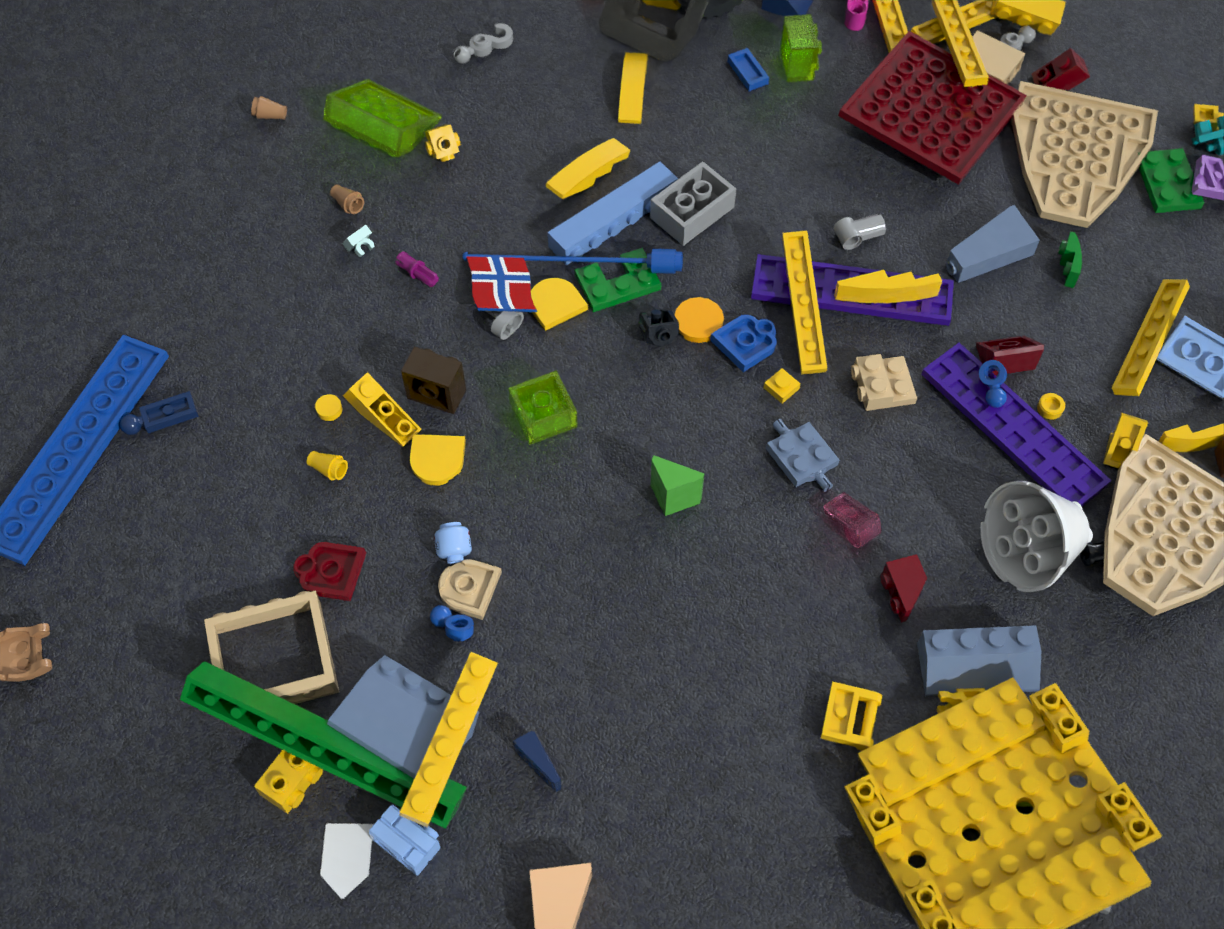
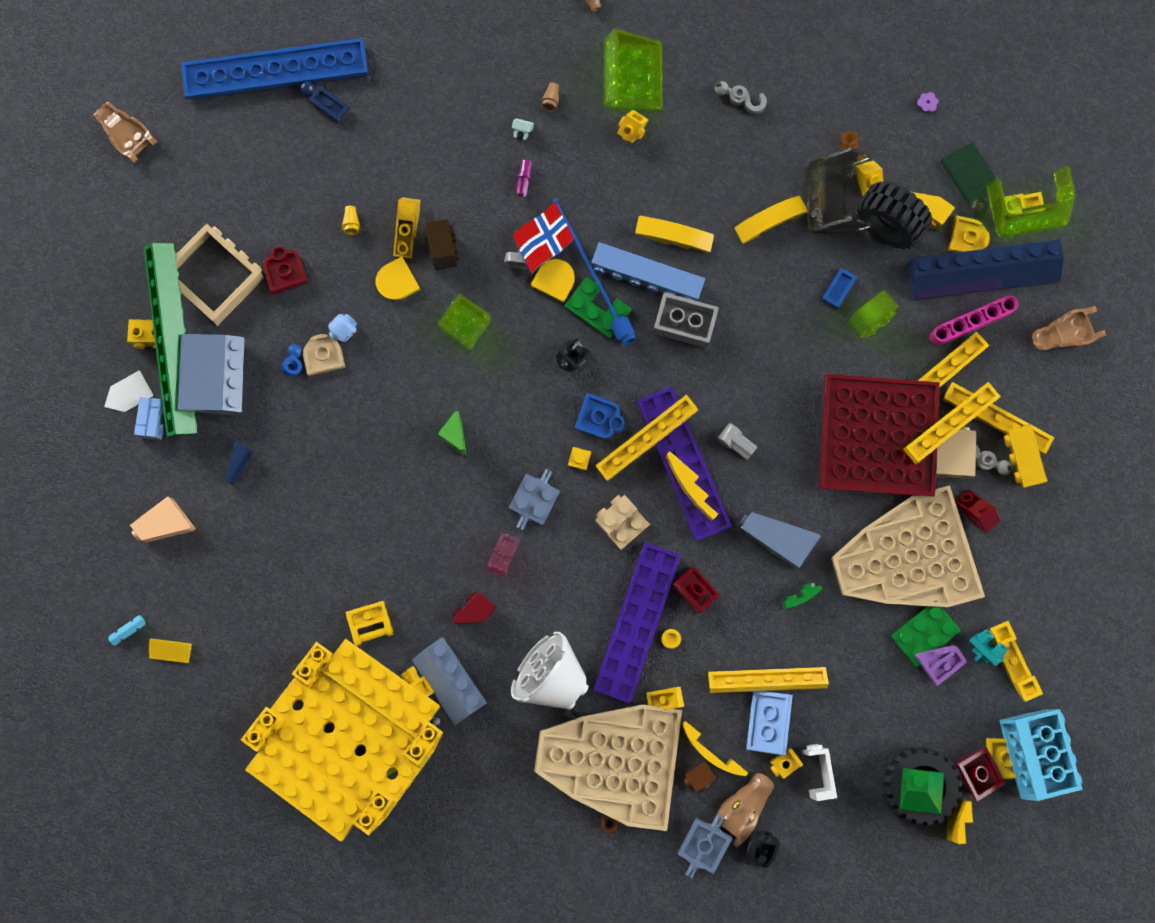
camera: 55 degrees right, 20 degrees up
(328, 407) = (391, 194): yellow tile -> none
(448, 740) = (209, 406): yellow plate -> none
(698, 319) = (598, 377): light orange tile -> none
(995, 395) = (649, 599): blue plate -> none

